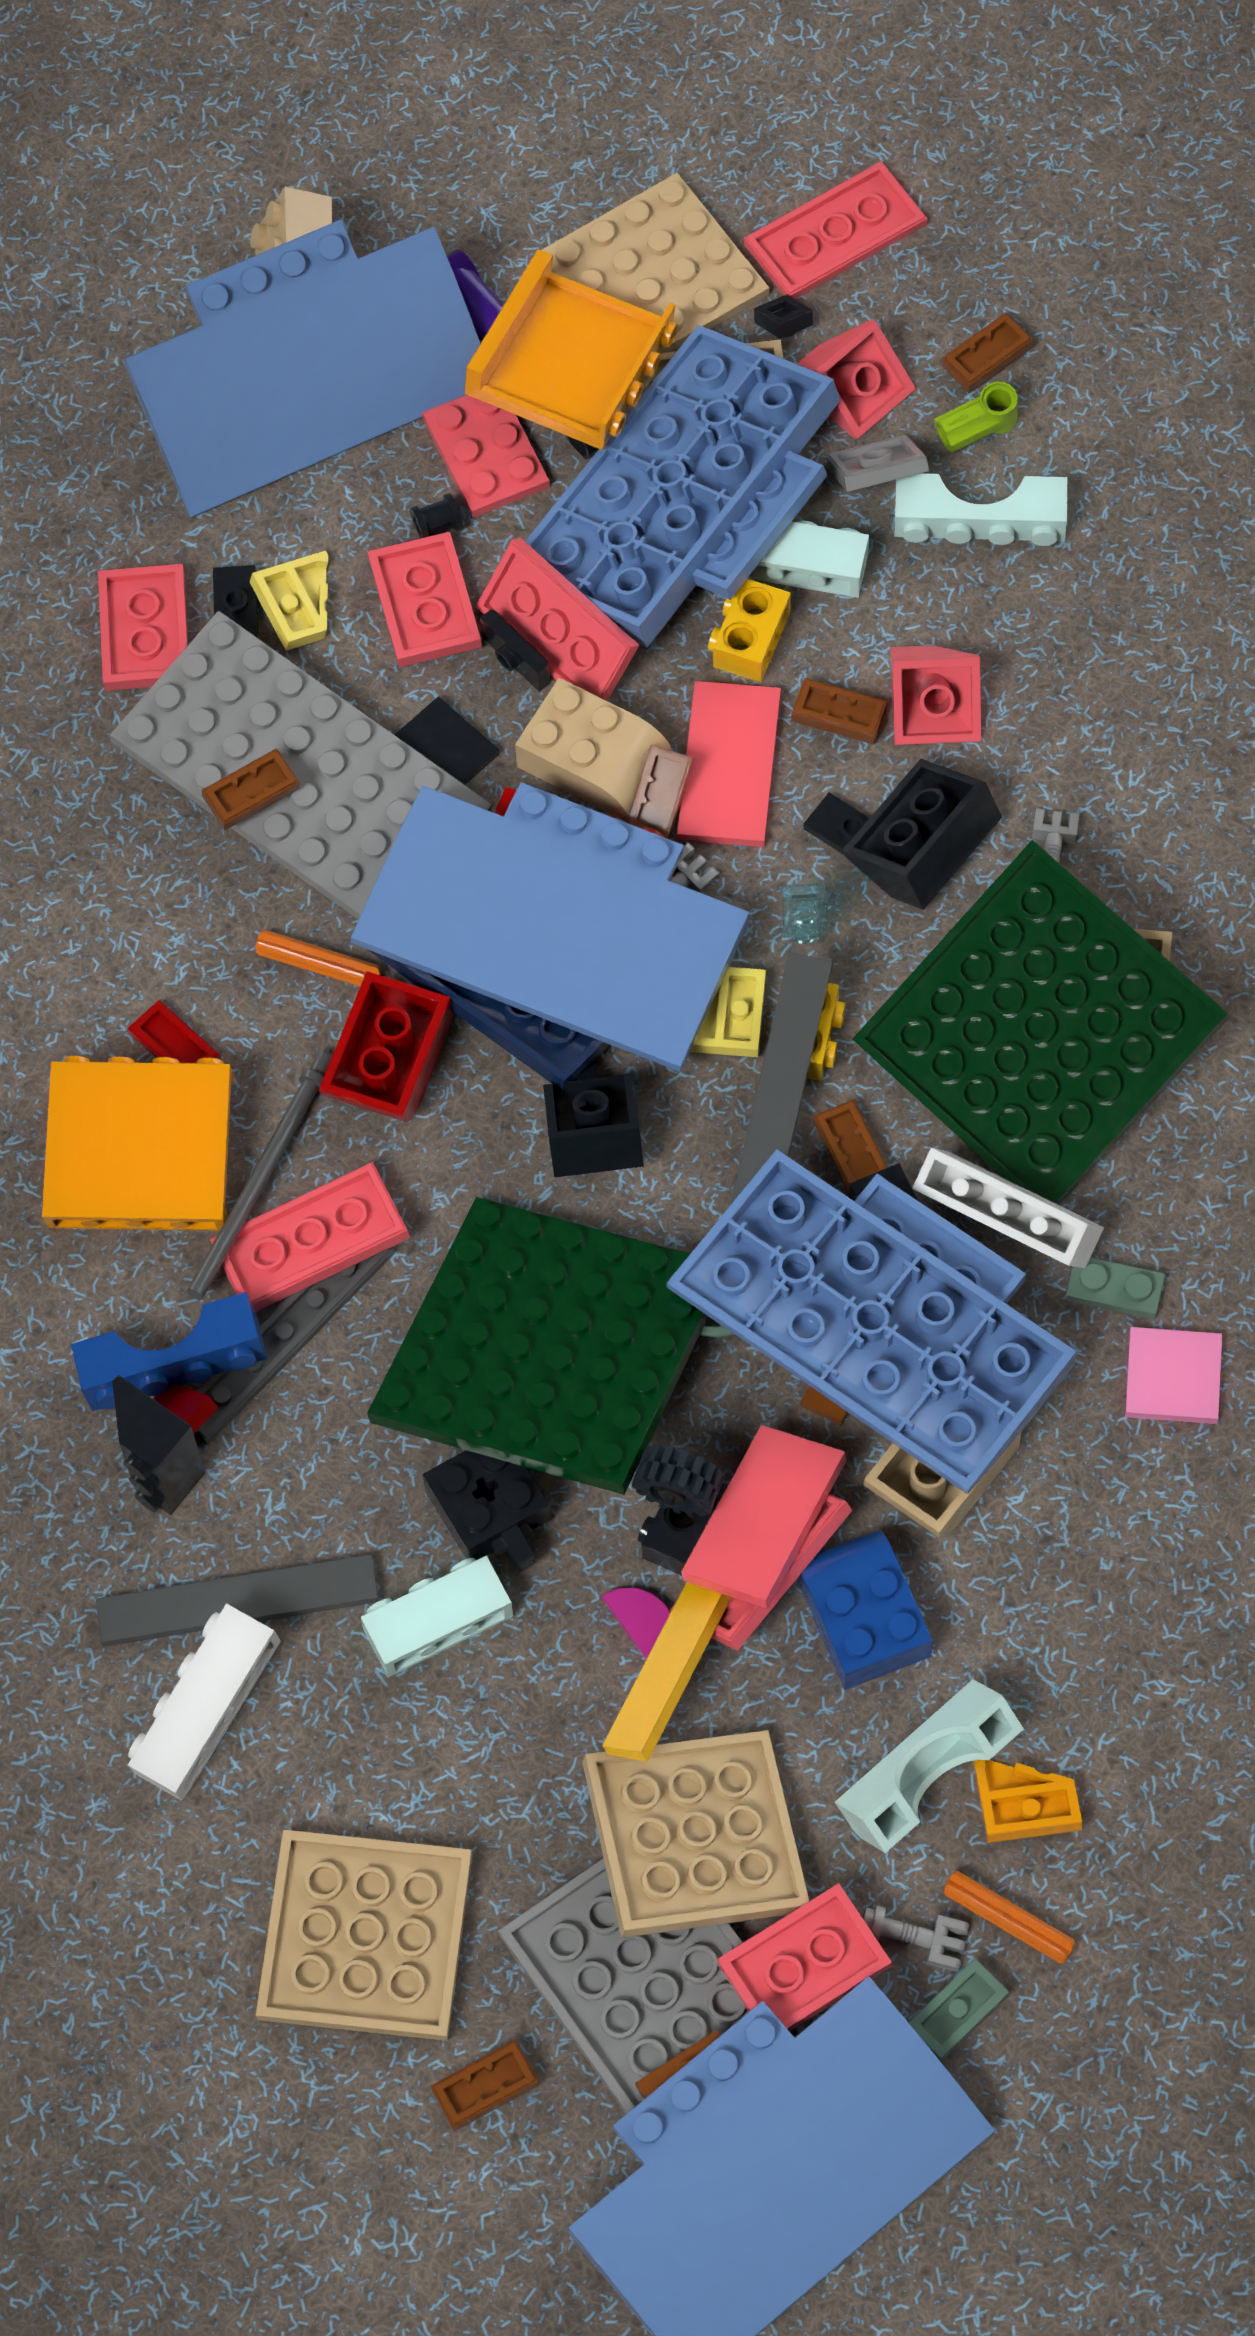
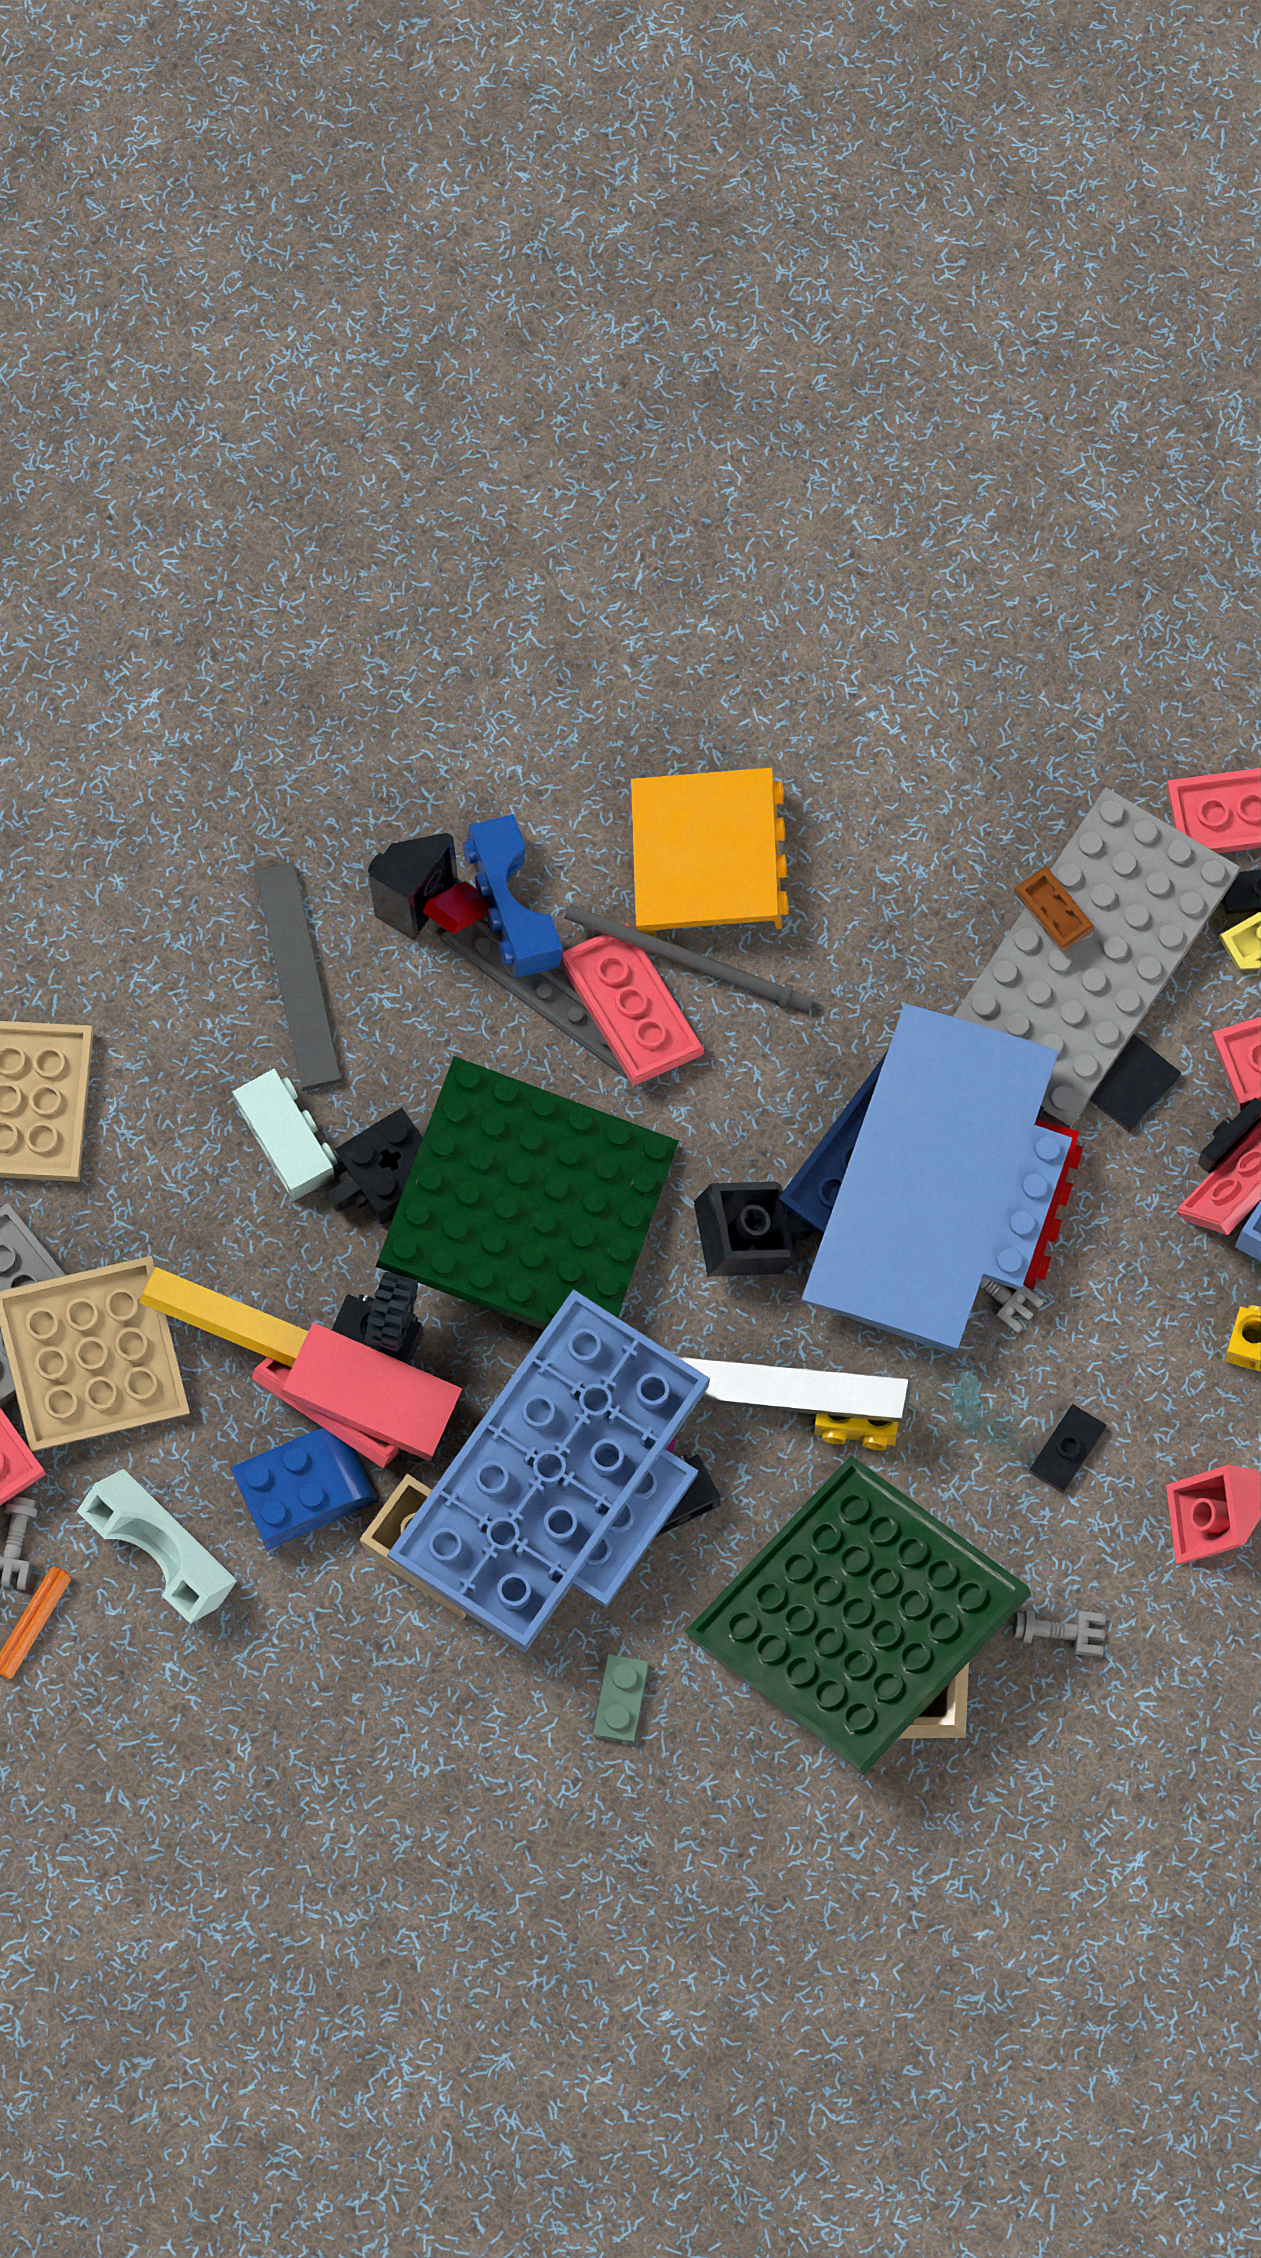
camera: 85 degrees right, 5 degrees up
(168, 1036) = (817, 876): red tile -> none
(203, 1702) = (200, 952): white brick -> none
(313, 958) = (906, 984): orange axle -> none
(388, 1047) = (807, 1050): red brick -> none
(588, 748) = (1130, 1210): tan brick -> none
(639, 1614) = (295, 1302): dark pink tile -> none
(660, 790) = (1090, 1271): plate -> none
(732, 765) = (1132, 1335): coral tile -> none
(734, 1016) = (871, 1351): light yellow wing -> none
(839, 711) = (1193, 1430): dark orange plate -> none
(849, 1142) = (745, 1460): dark orange plate -> none
(923, 832) = (1064, 1508): black slope -> none
(1008, 1208) = (679, 1593): white brick -> none
(1024, 1802) = (132, 1631): light orange wing -> none
(1173, 1375) = (537, 1752): bright pink tile -> none

